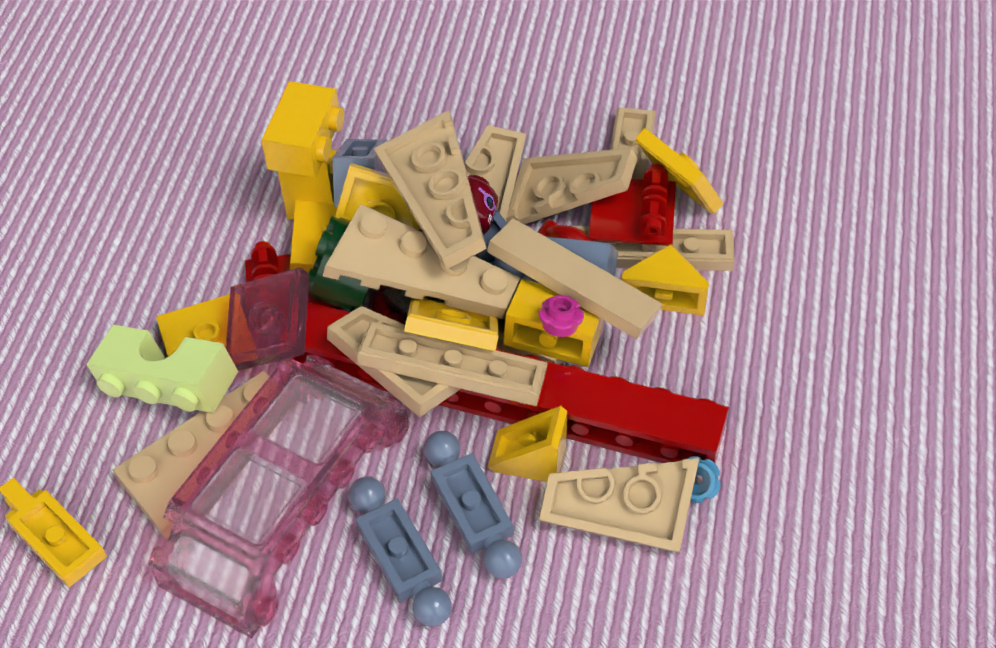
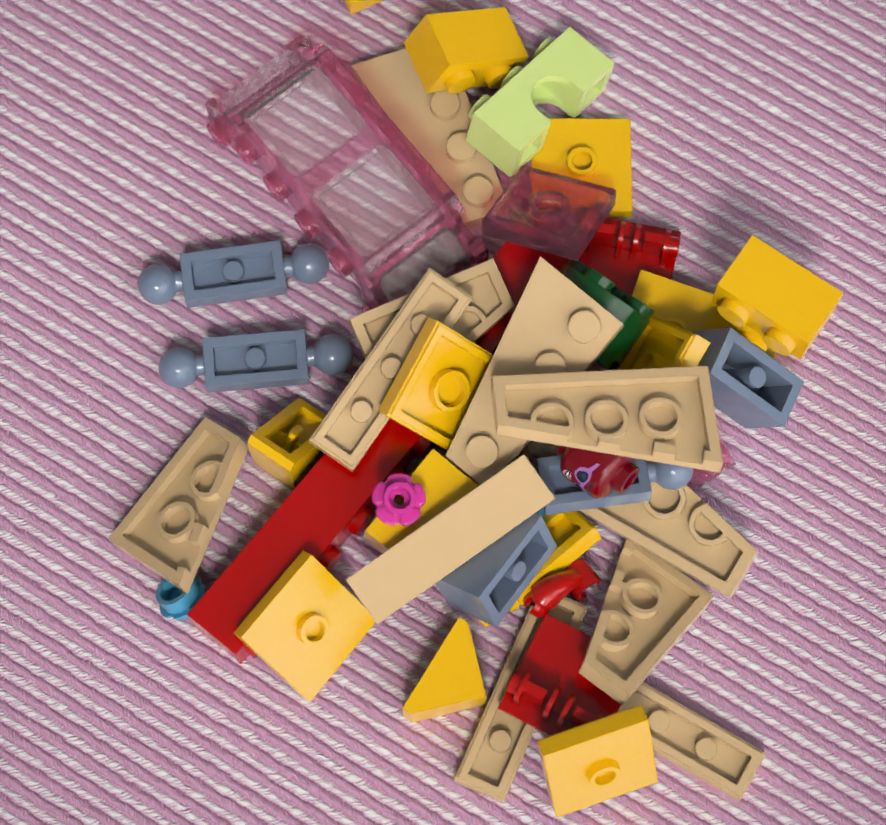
camera: 110 degrees right, 20 degrees up
(130, 431) = (465, 49): none -> yellow brick
(677, 377) = (305, 626): none -> yellow plate

